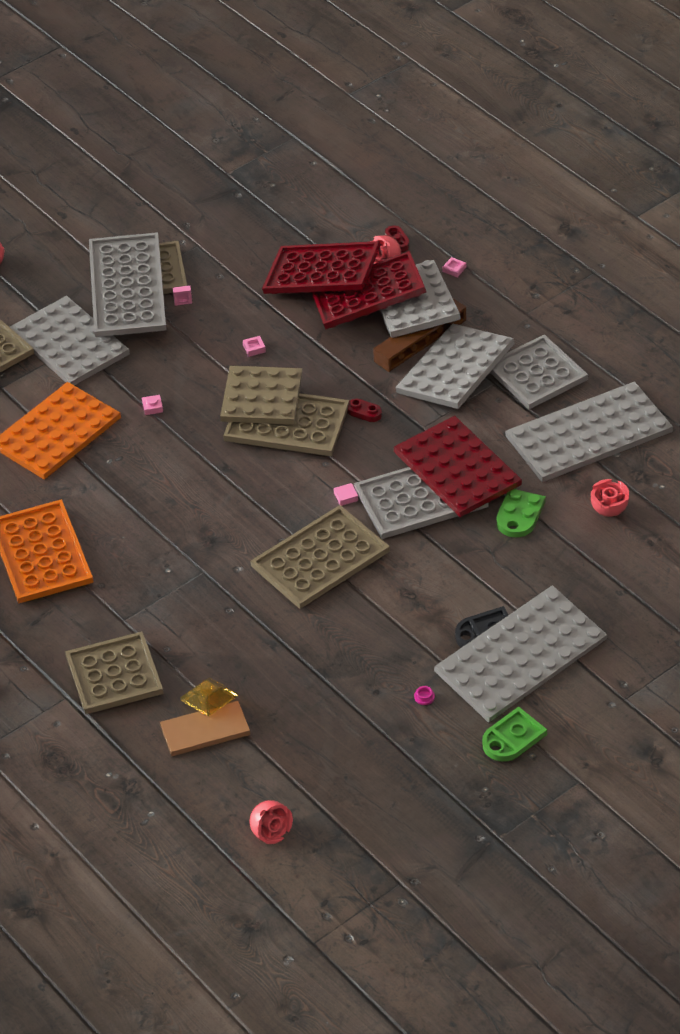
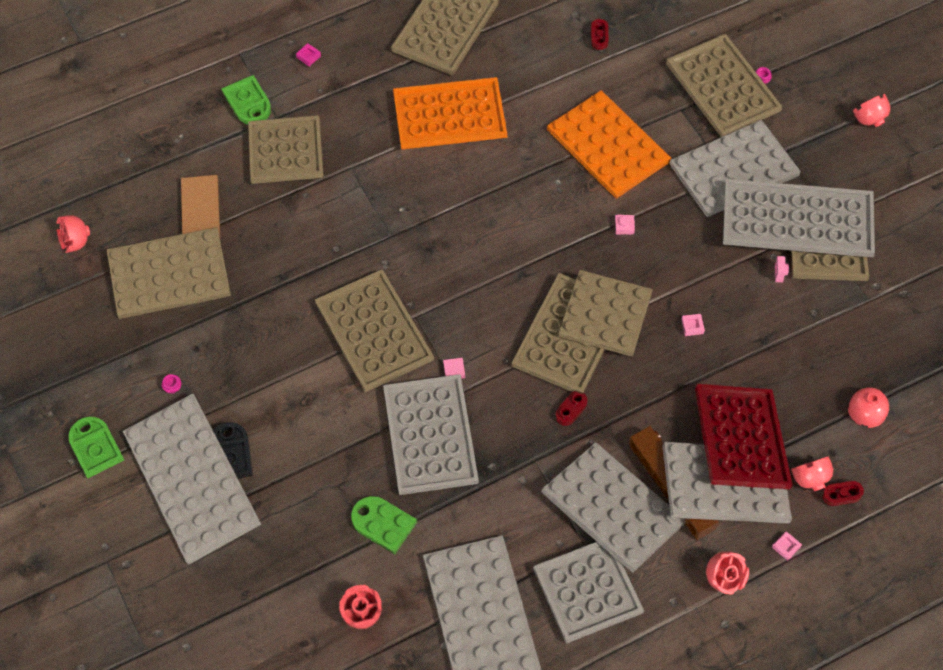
camera: 100 degrees right, 15 degrees up
(52, 720) = (246, 99): none -> bright green plate
(209, 696) = (230, 212): clear yellow slope -> none
(295, 731) = (168, 273): none -> dark tan plate
(309, 230) = (868, 407): none -> coral cylinder
(321, 267) = (791, 400): dark red plate -> none
(457, 466) = (454, 472): dark red plate -> none
(494, 290) = (727, 572): none -> coral cylinder

